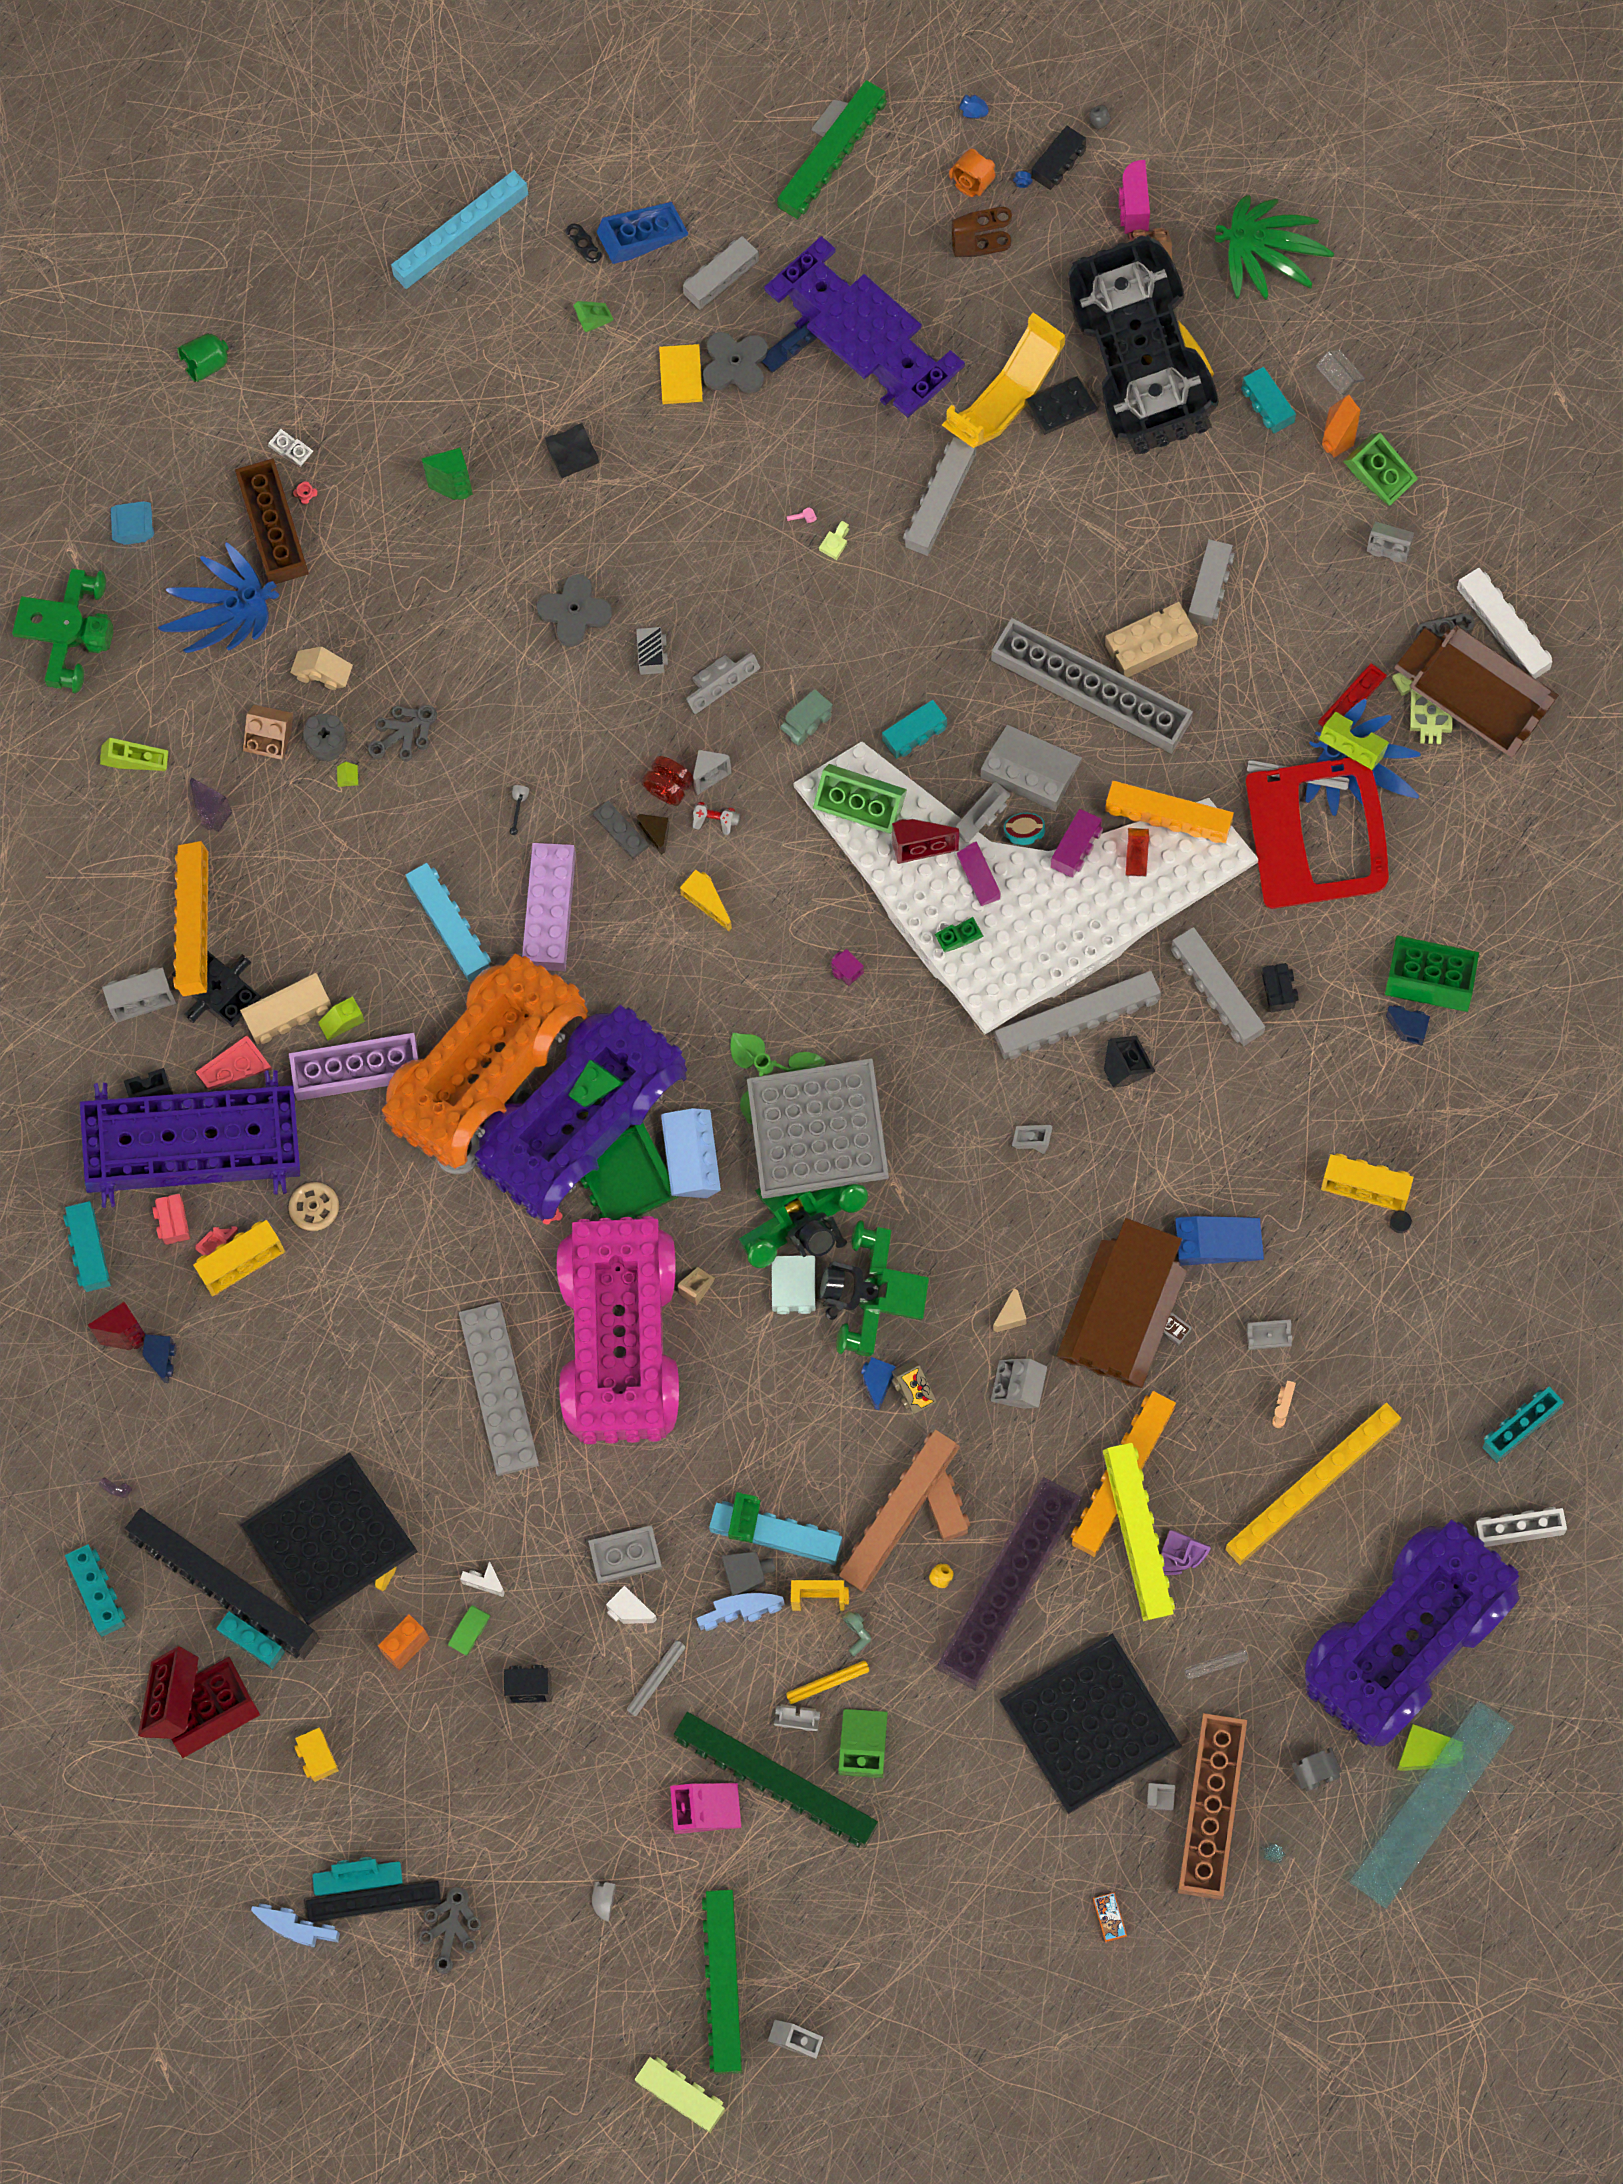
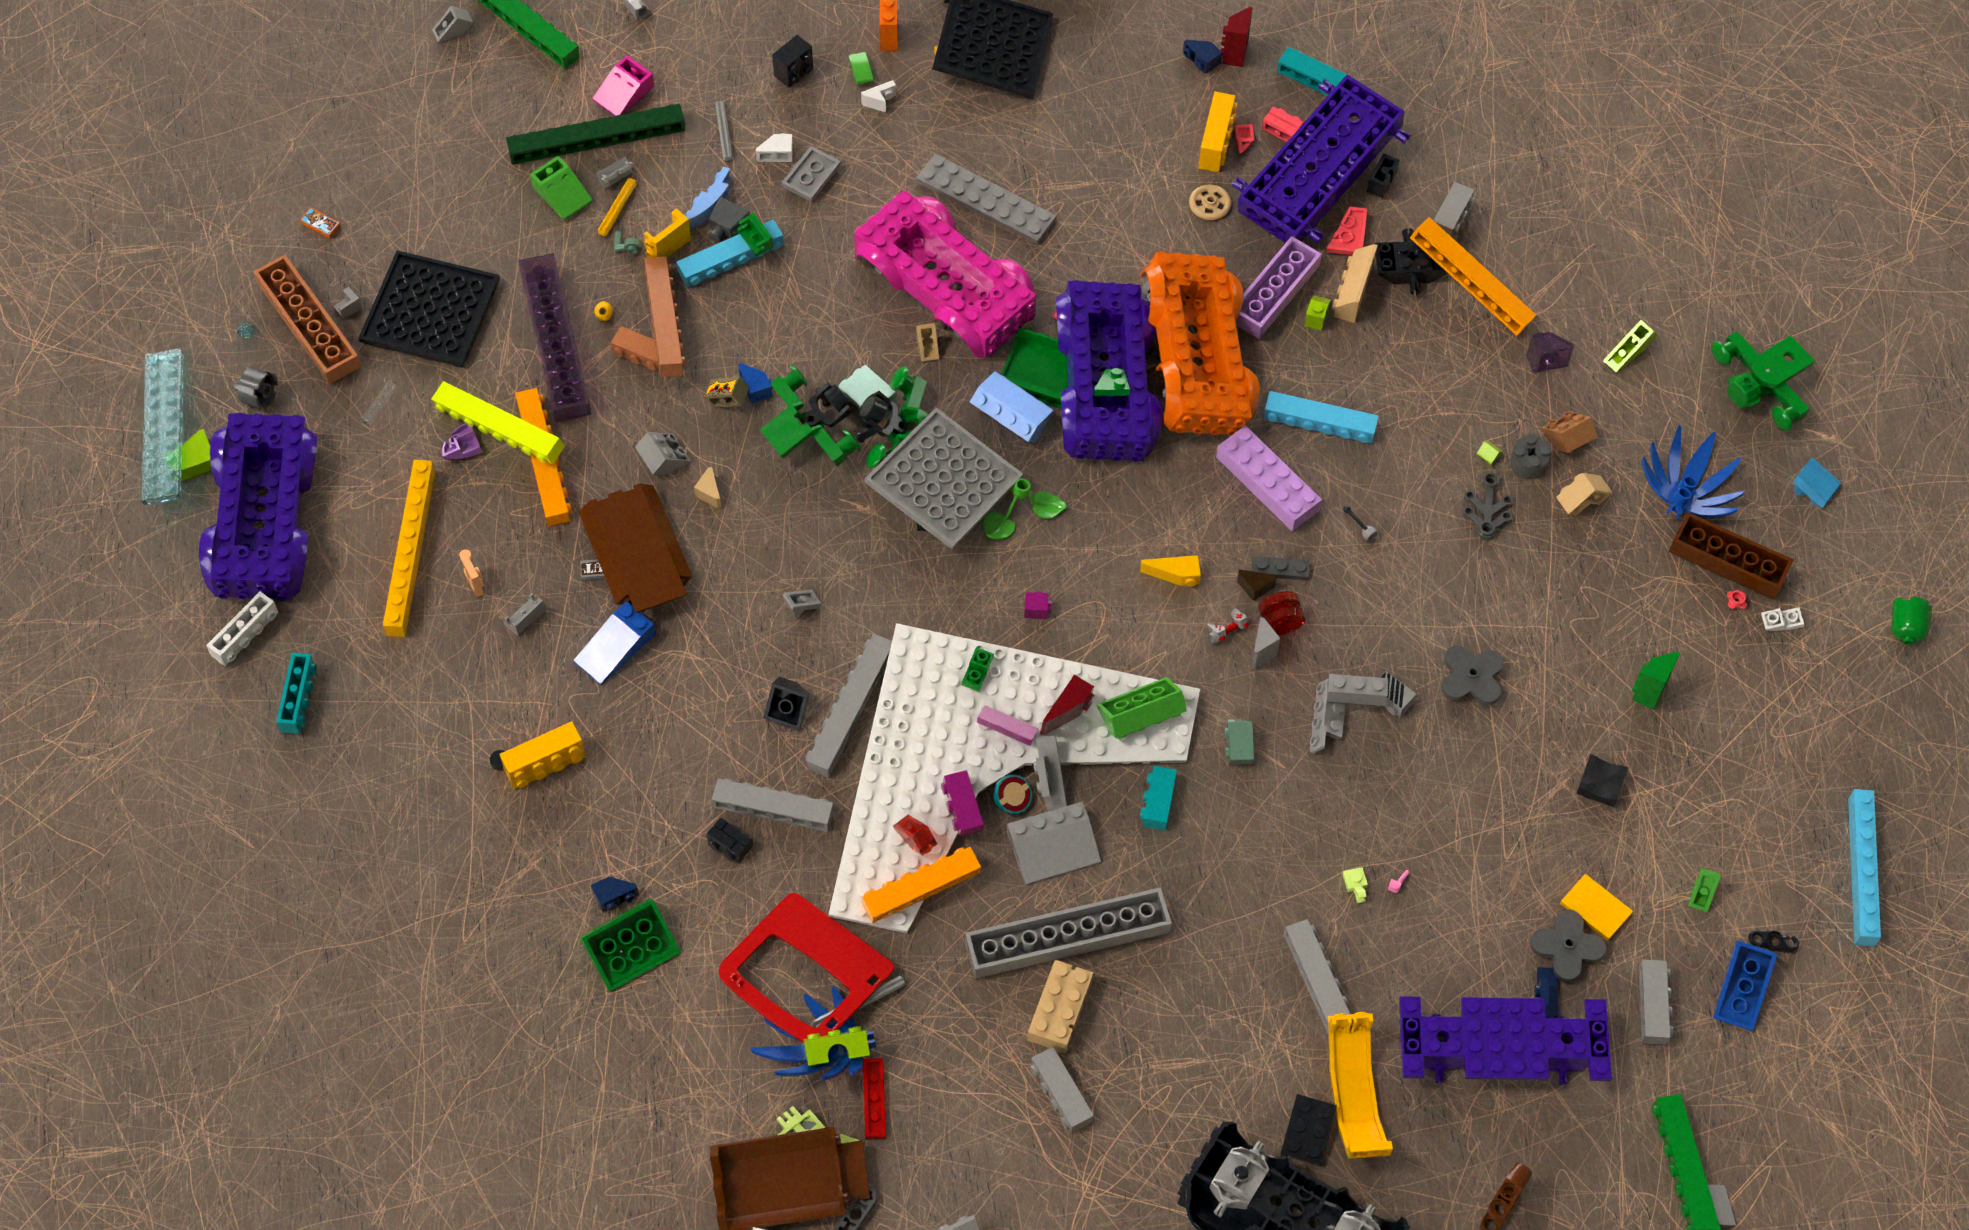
camera: 130 degrees right, 10 degrees down
(682, 663) = (1357, 689): none -> light grey brick

